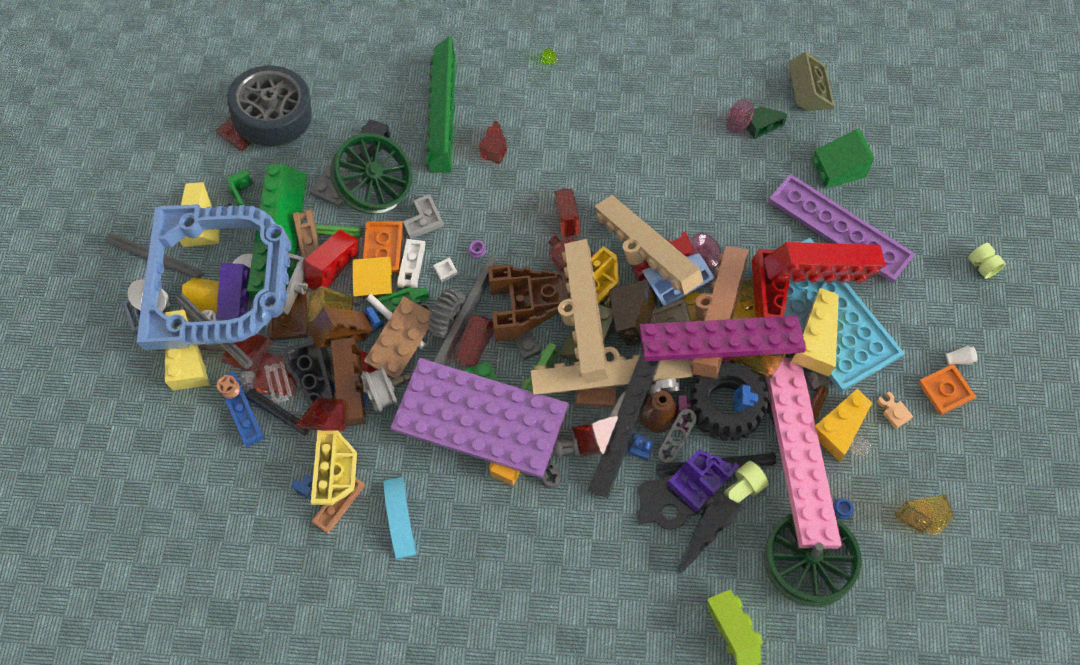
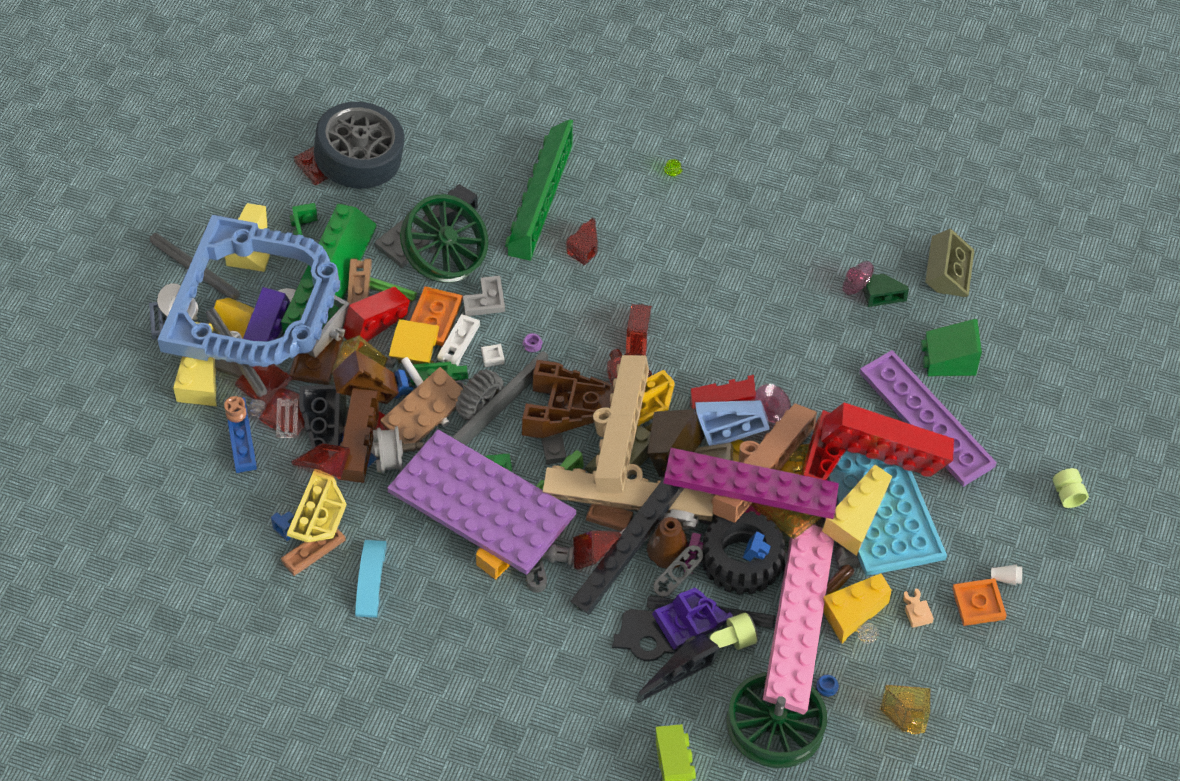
camera: 10 degrees right, 10 degrees down
(275, 410) = (276, 446): black axle -> none
(474, 340) = (500, 428): clear red slope -> none
(641, 447) = (639, 575): blue tile -> none
(646, 244) = (706, 376): tan hinge -> none

